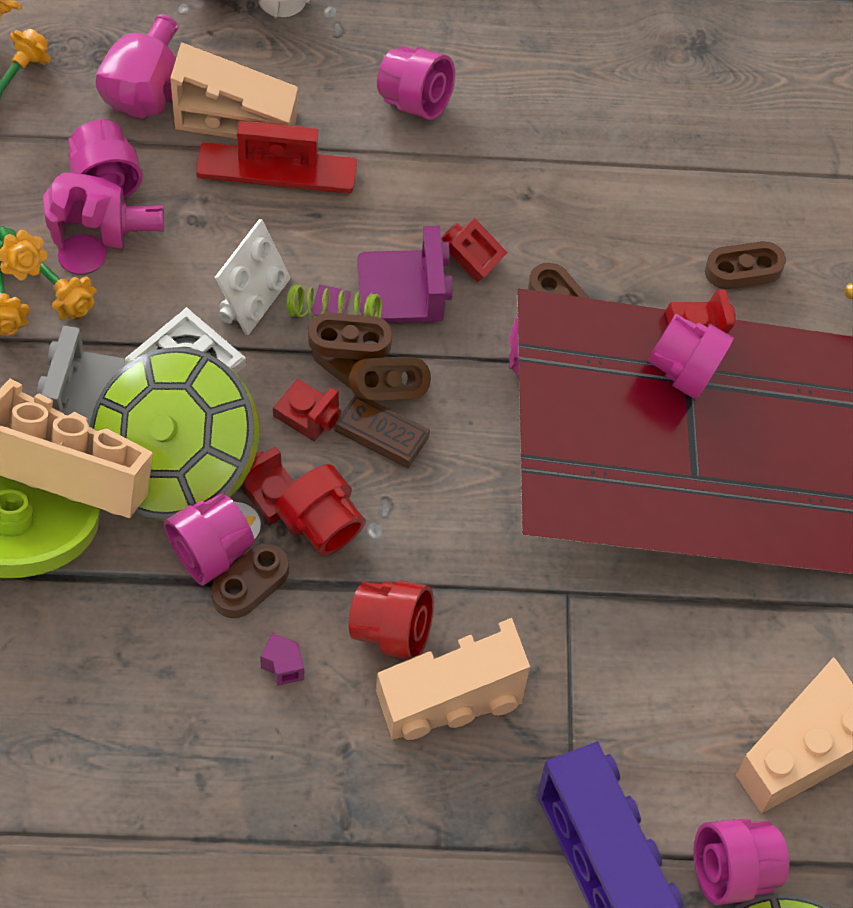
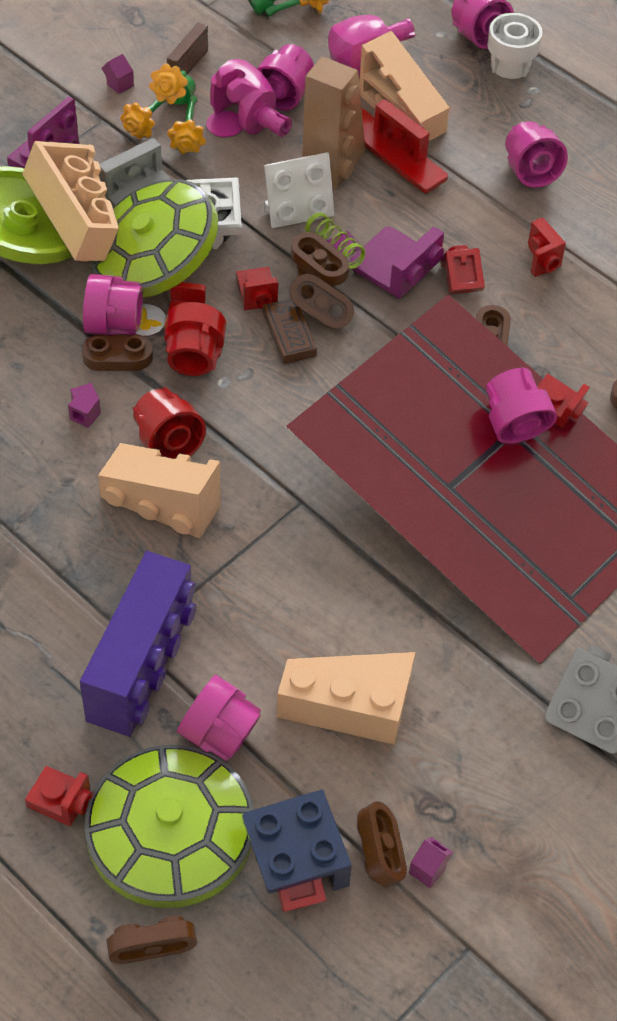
camera: 45 degrees right, 5 degrees down
(232, 181) = (333, 117): none -> medium nougat wedge
(517, 170) = (546, 247): none -> red bracket

